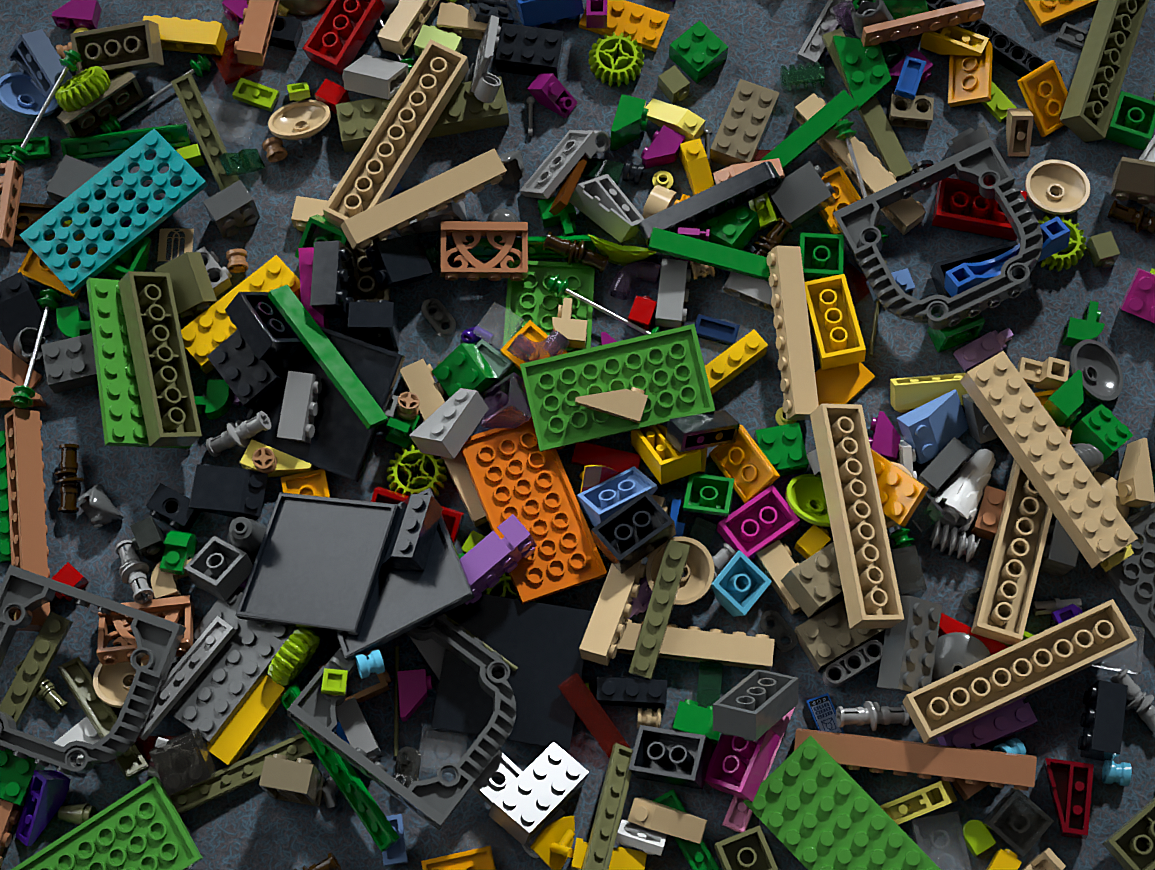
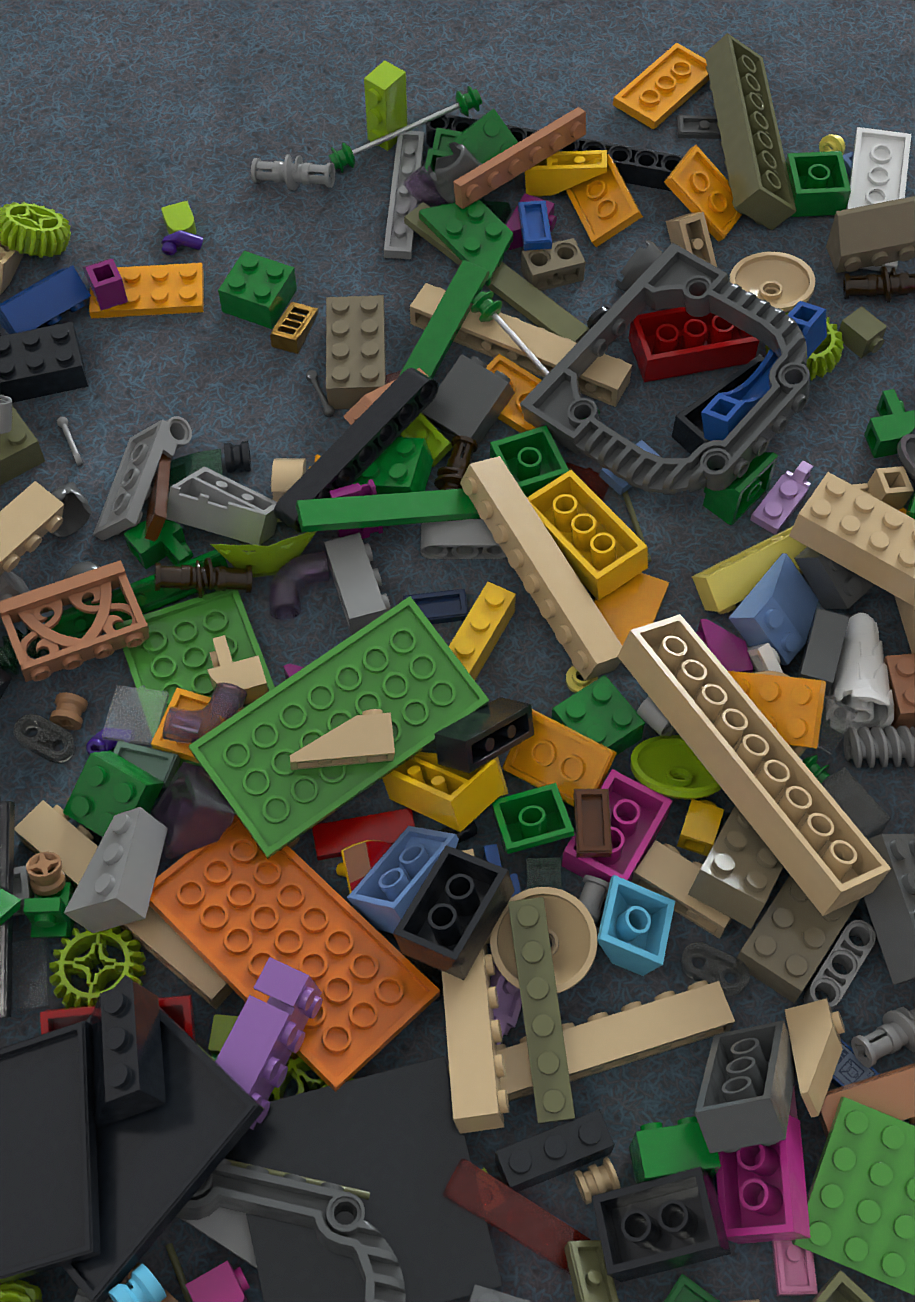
camera: 25 degrees left, 10 degrees down
(459, 306) = (68, 711): none -> medium nougat wheel
(552, 94) = (88, 402): magenta slope -> none
(560, 288) = (202, 630): axle -> none
(625, 67) = (138, 338): lime gear -> none
(628, 121) = (205, 395): green slope -> none
(642, 312) = (327, 622): red brick -> none
(663, 148) = (265, 413): magenta slope -> none
(663, 174) = (279, 445): light yellow plate -> none
(674, 84) = (243, 337): olive brick -> none
(676, 118) = (265, 376): light yellow slope -> none
(696, 165) = (314, 416): yellow slope -> none
(701, 98) = (293, 342): none -> pearl gold slope
(701, 270) = (382, 538): tan bush -> none
(709, 683) = (657, 1088): clear green slope -> none
(743, 513) = (592, 823): none -> reddish brown tile
(802, 75) = (401, 270): clear green piece -> none
(809, 703) = (815, 1049): none -> tan slope
(998, 104) = (651, 225): lime plate -> none

